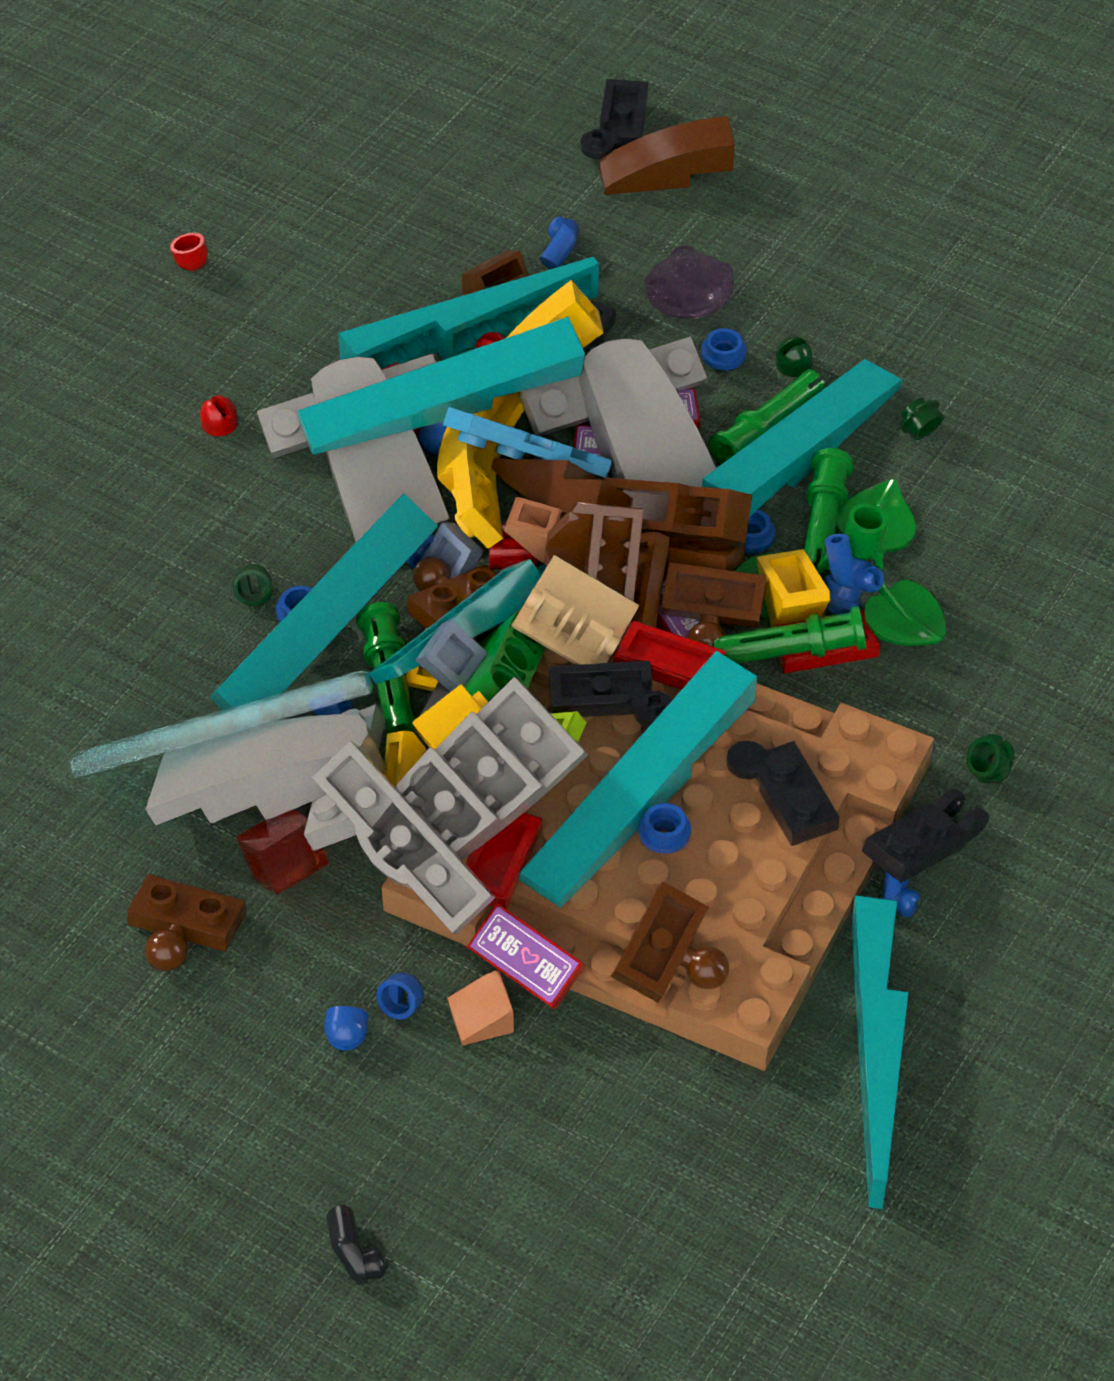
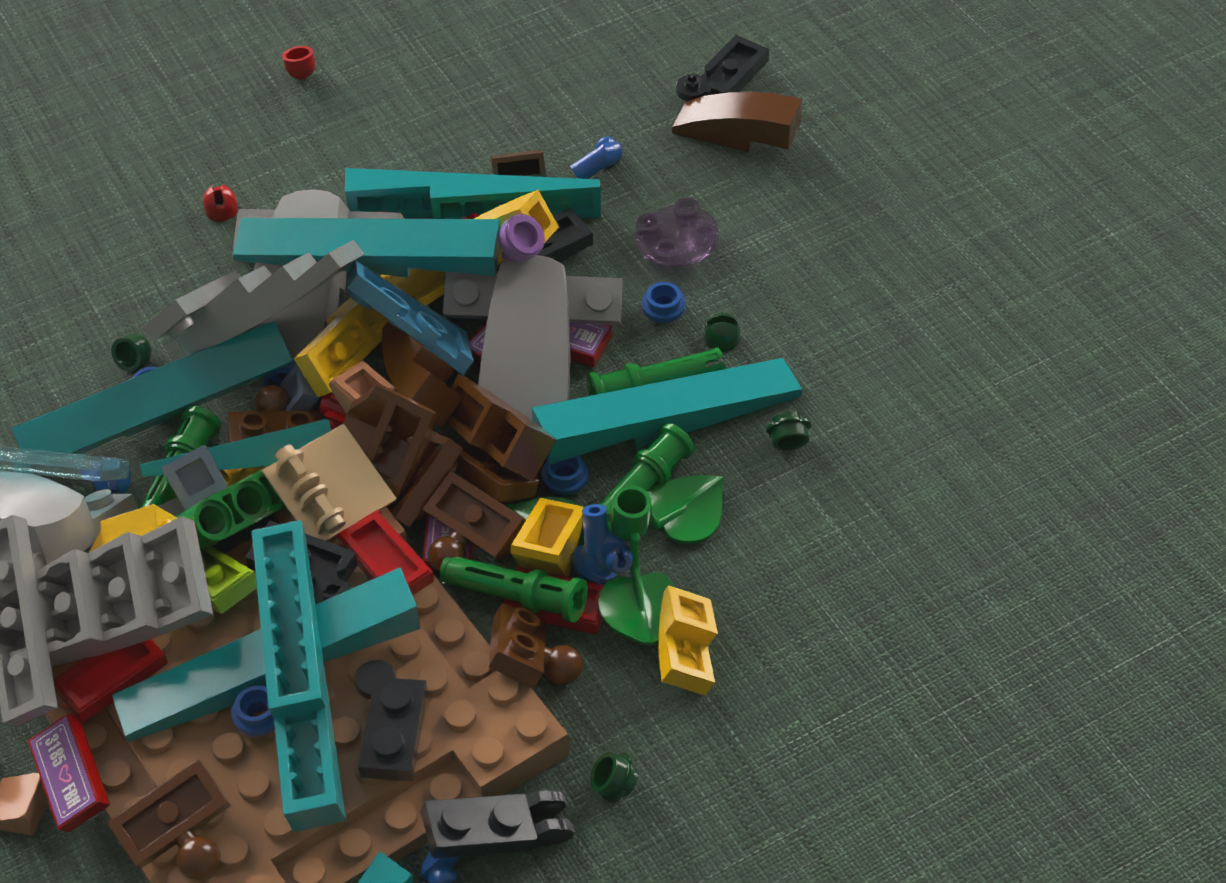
camera: 30 degrees right, 0 degrees up
(371, 487) = (239, 303): none -> light grey slope
(594, 328) = (520, 238): none -> medium lavender tile
(694, 777) = (296, 679): none -> teal slope
(842, 686) = (521, 651): none -> reddish brown plate
(963, 621) = (684, 637): none -> yellow slope

